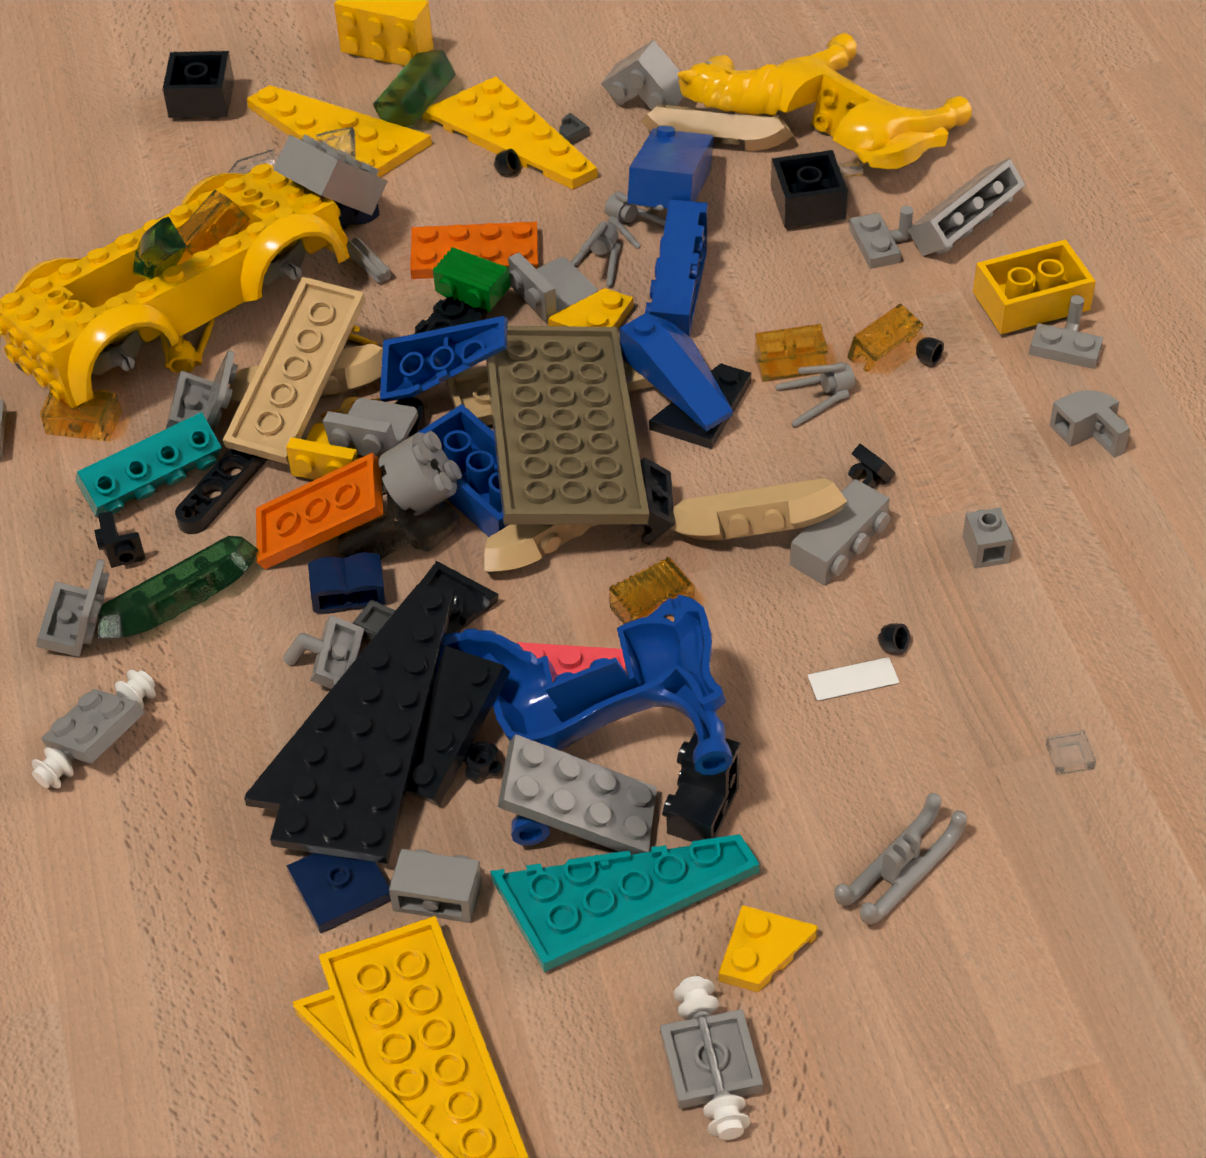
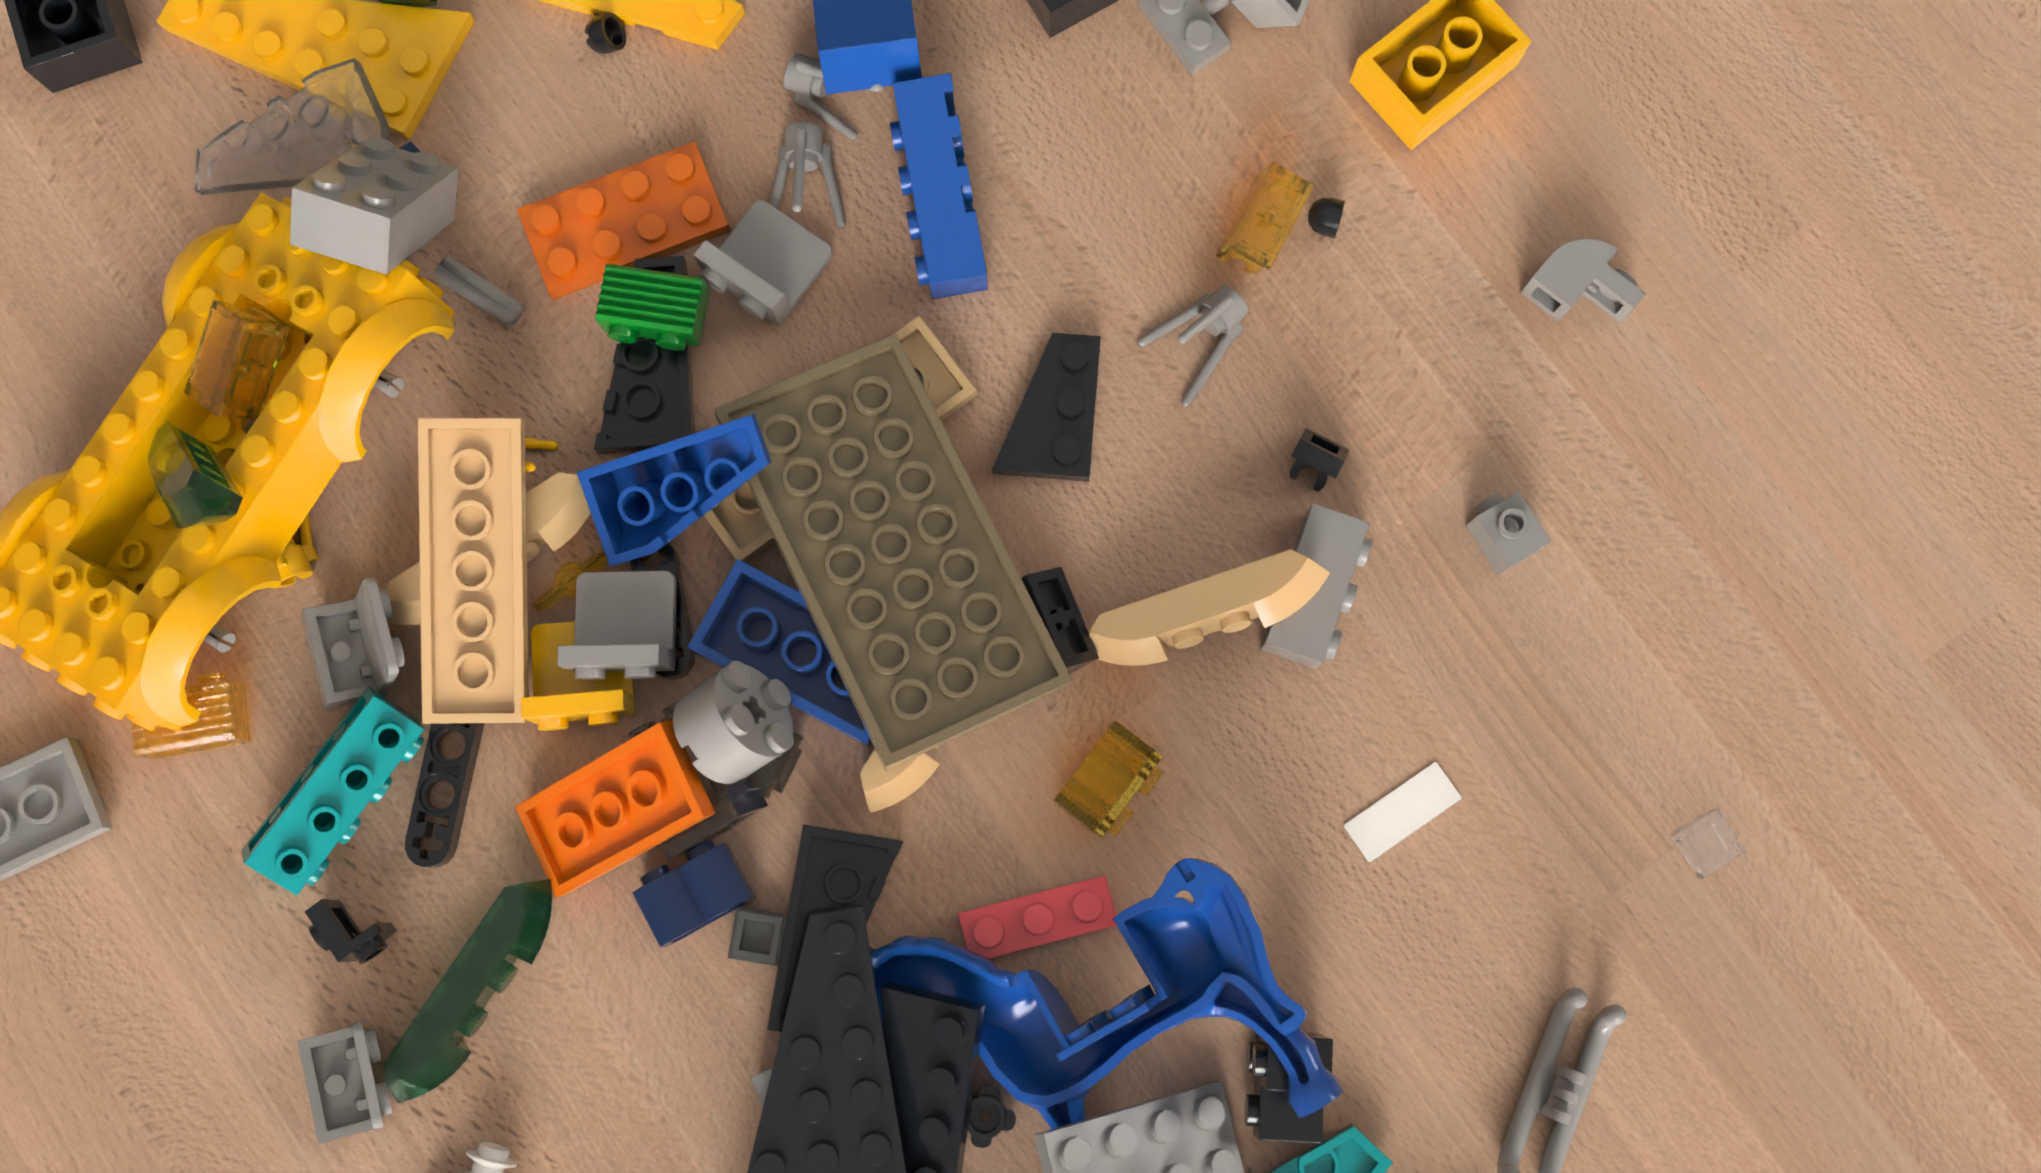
camera: 20 degrees left, 30 degrees up
(334, 650) = (727, 1019): light grey plate -> none
(600, 309) = (844, 295): yellow wing -> none
(675, 368) = (997, 370): blue wedge -> none
(786, 350) = (1144, 284): clear yellow hinge -> none
(894, 638) = (1439, 738): black hinge -> none
(1067, 344) = (1504, 140): light grey plate -> none

